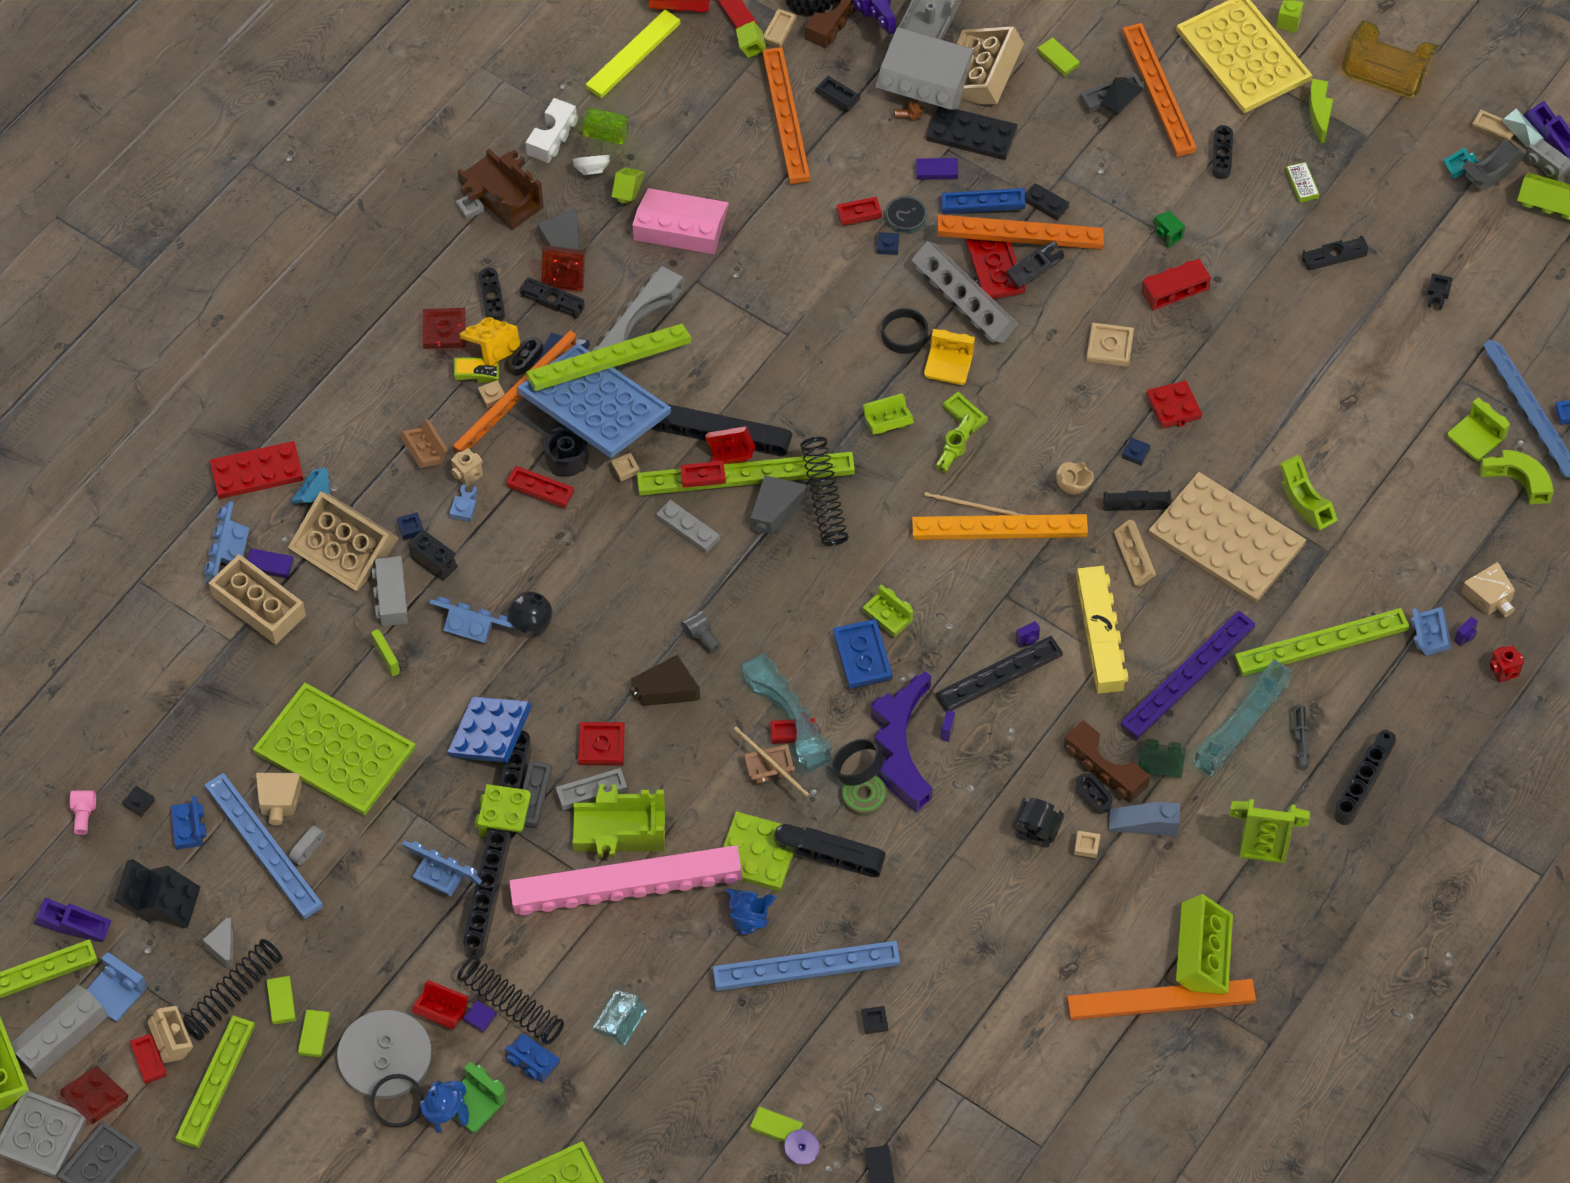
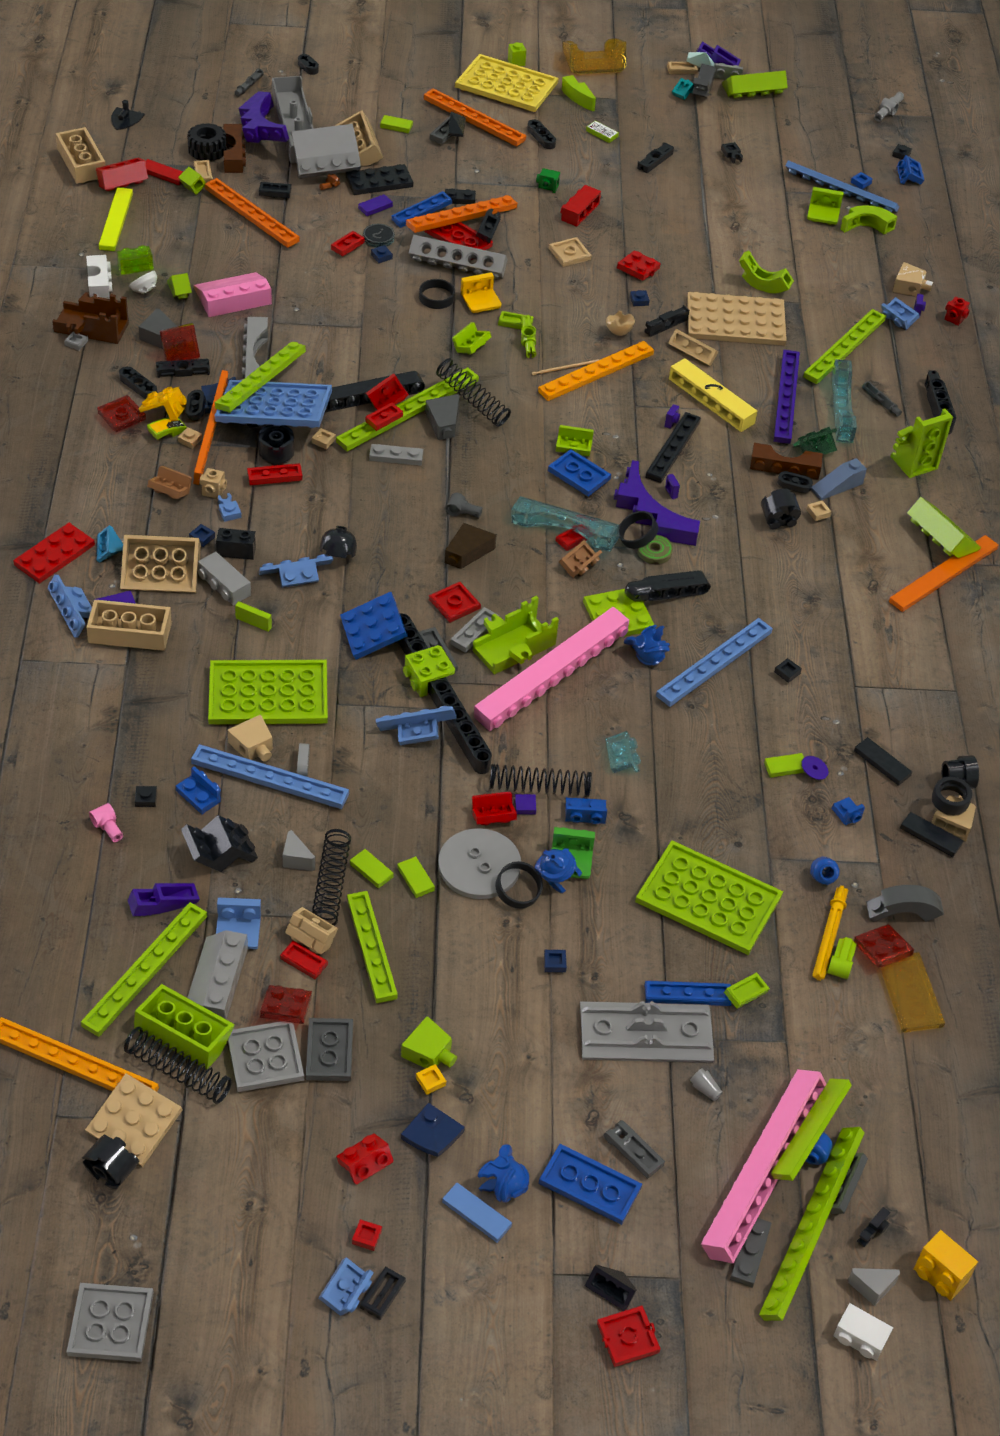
camera: 40 degrees left, 10 degrees down
(772, 762) = (584, 553): tan piece -> none

